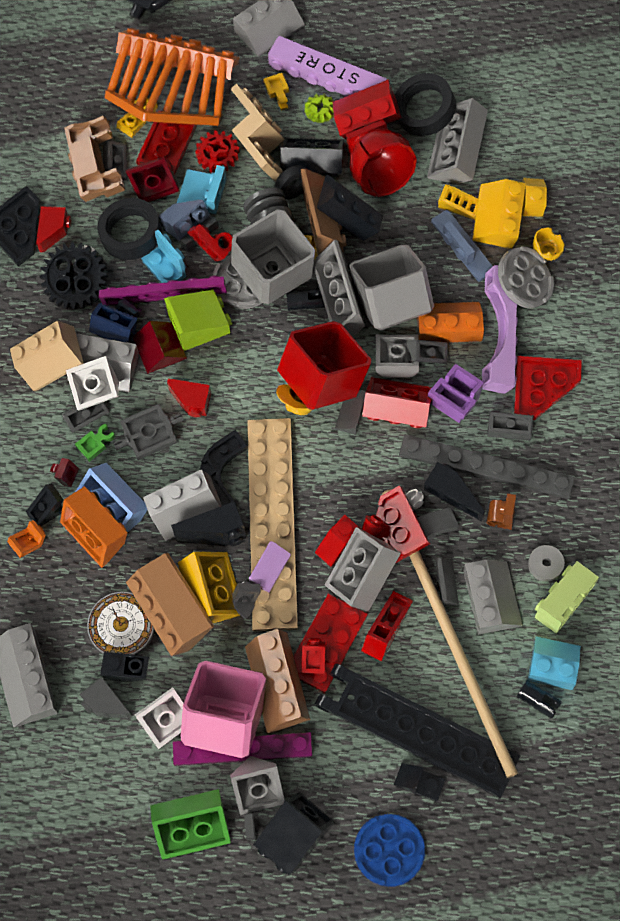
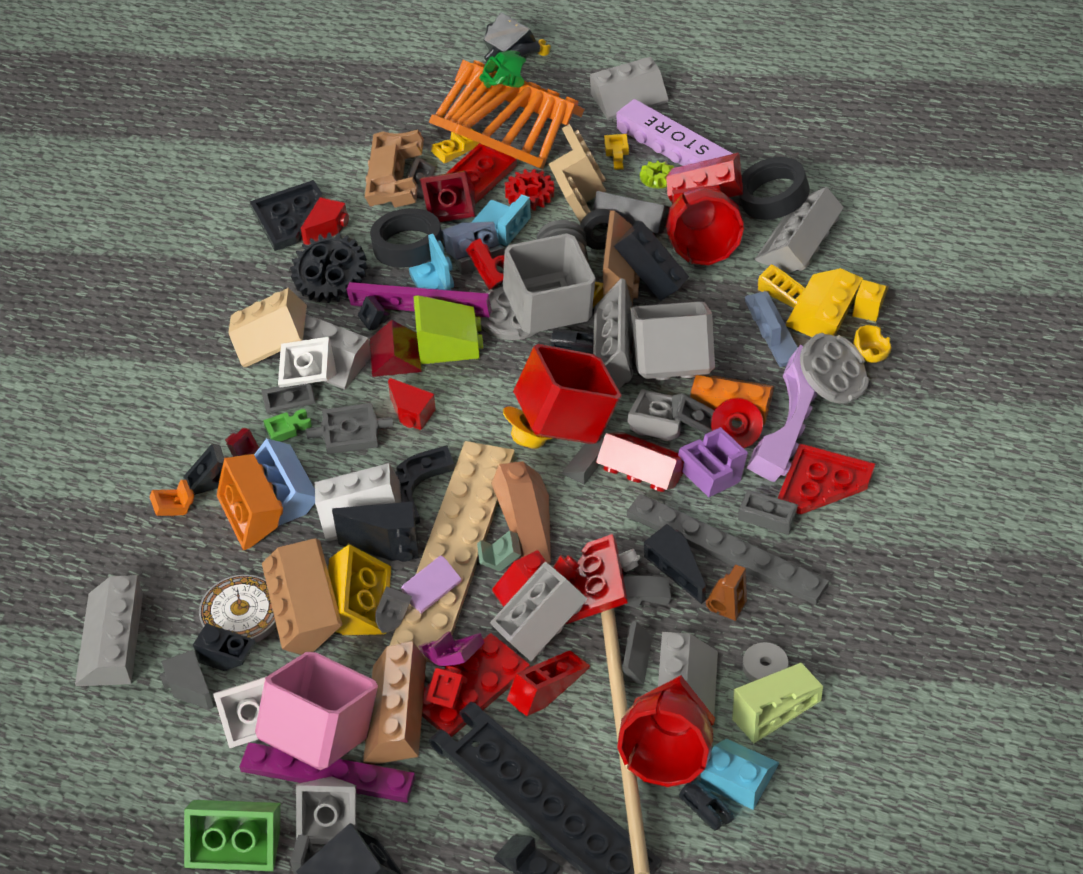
camera: 15 degrees right, 20 degrees down
(112, 324) = (351, 315): dark blue brick -> none
(168, 40) = (508, 68): none -> green helmet
(307, 623) = (450, 652): none -> magenta slope
(311, 519) = (501, 552): none -> sand green bracket
(319, 474) = (524, 506): none -> nougat wedge
(466, 357) = (748, 413): none -> red dish
(499, 656) = (668, 735): none -> red plate

